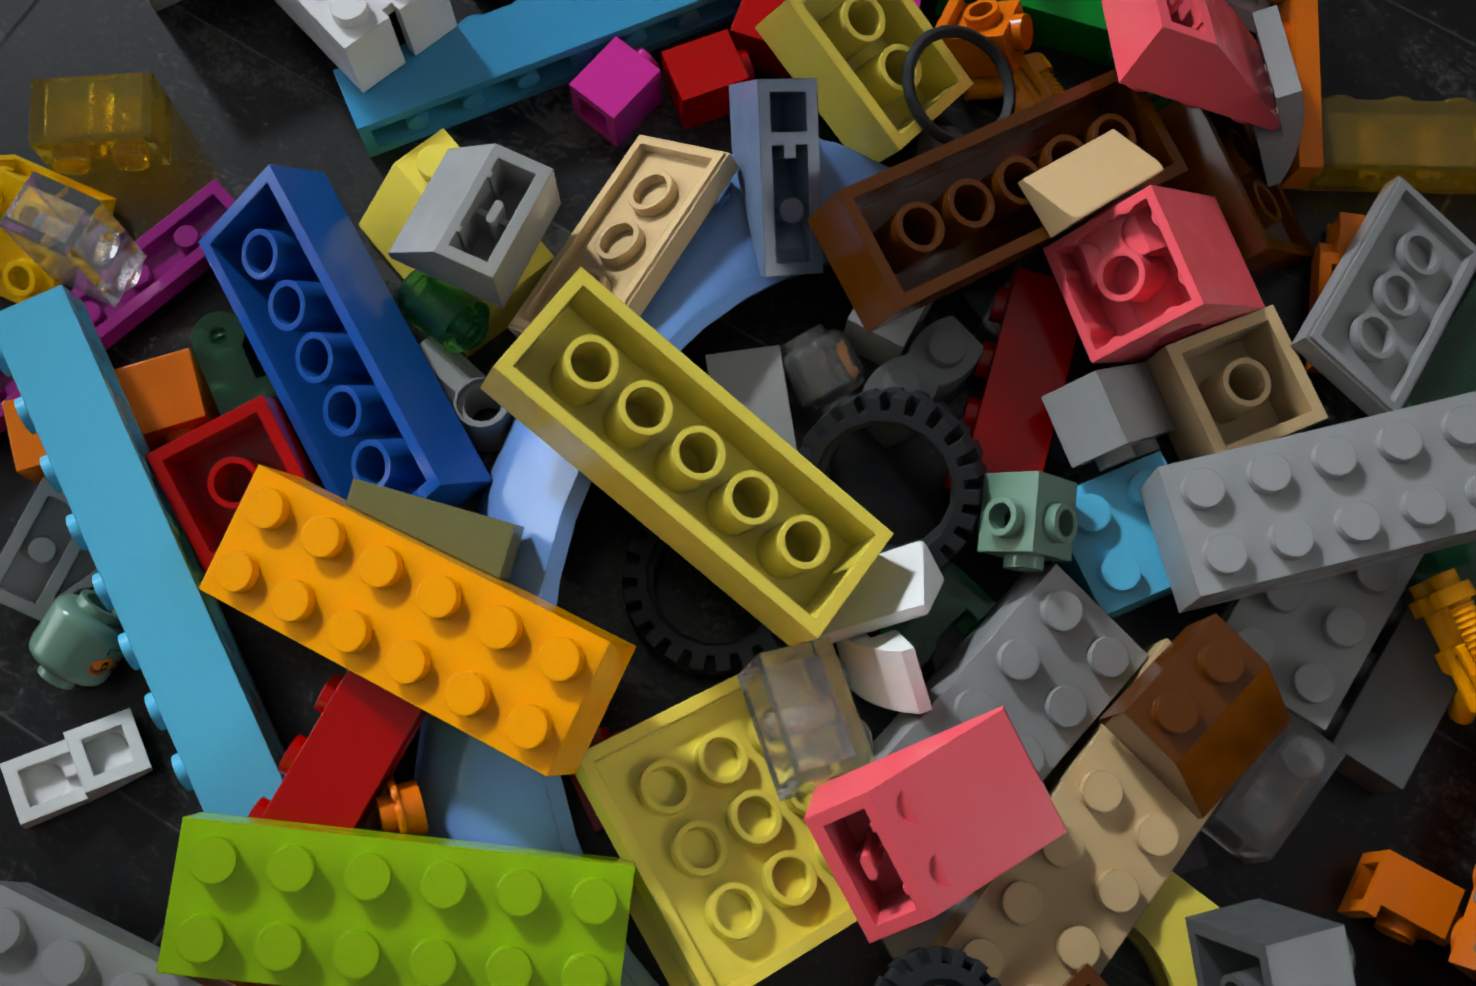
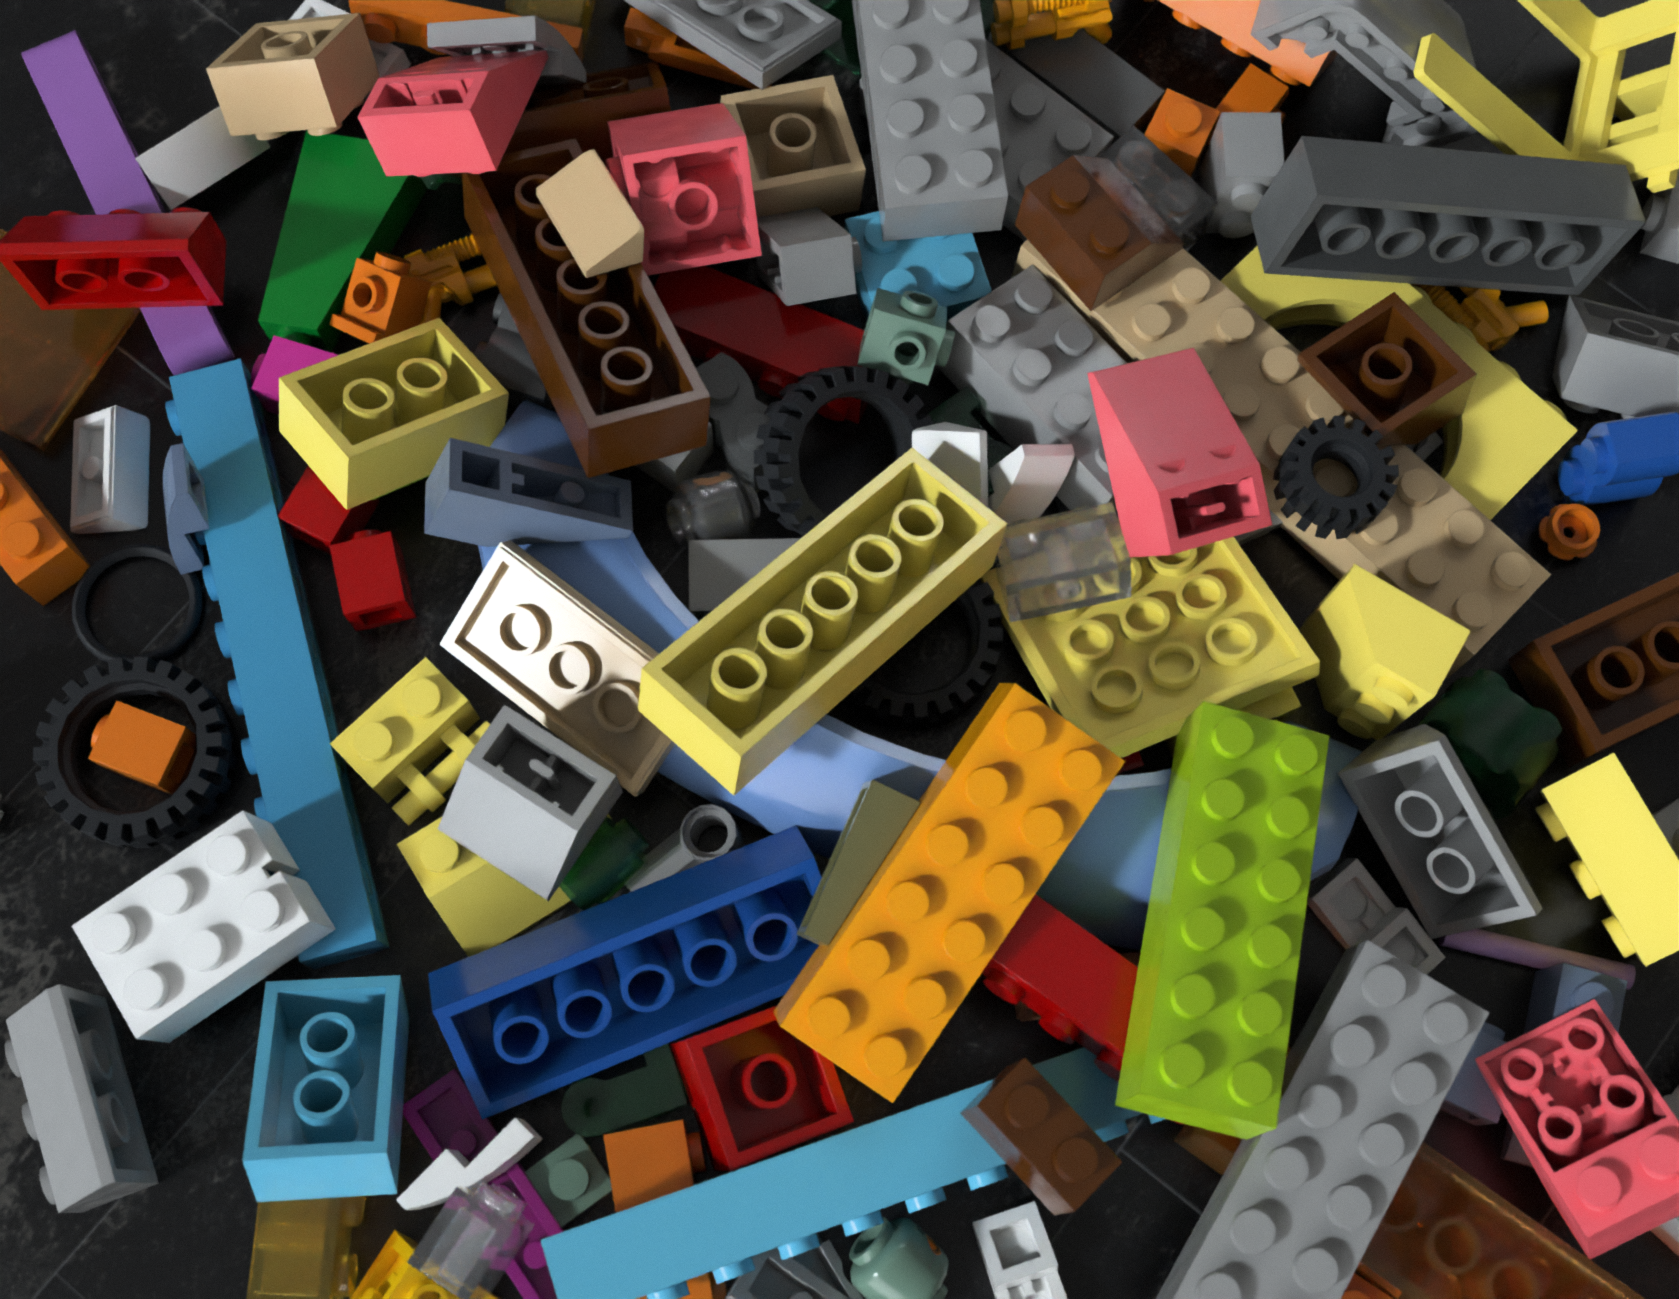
camera: 85 degrees left, 0 degrees up
(153, 234) = (454, 1170): none -> white slope
(158, 331) = (570, 1179): none -> sand green plate
(173, 743) = (1041, 1138): none -> reddish brown brick
(213, 105) = (328, 1089): none -> medium azure brick
(402, 809) = (1119, 927): orange plate -> none
(559, 129) = (406, 734): none -> light yellow brick
(617, 90) = (362, 663): dark pink brick -> none
(971, 36) = (425, 366): black tyre -> none
(1329, 884) = (1240, 168): none -> light grey brick
(1352, 815) = (1182, 129): none -> orange brick

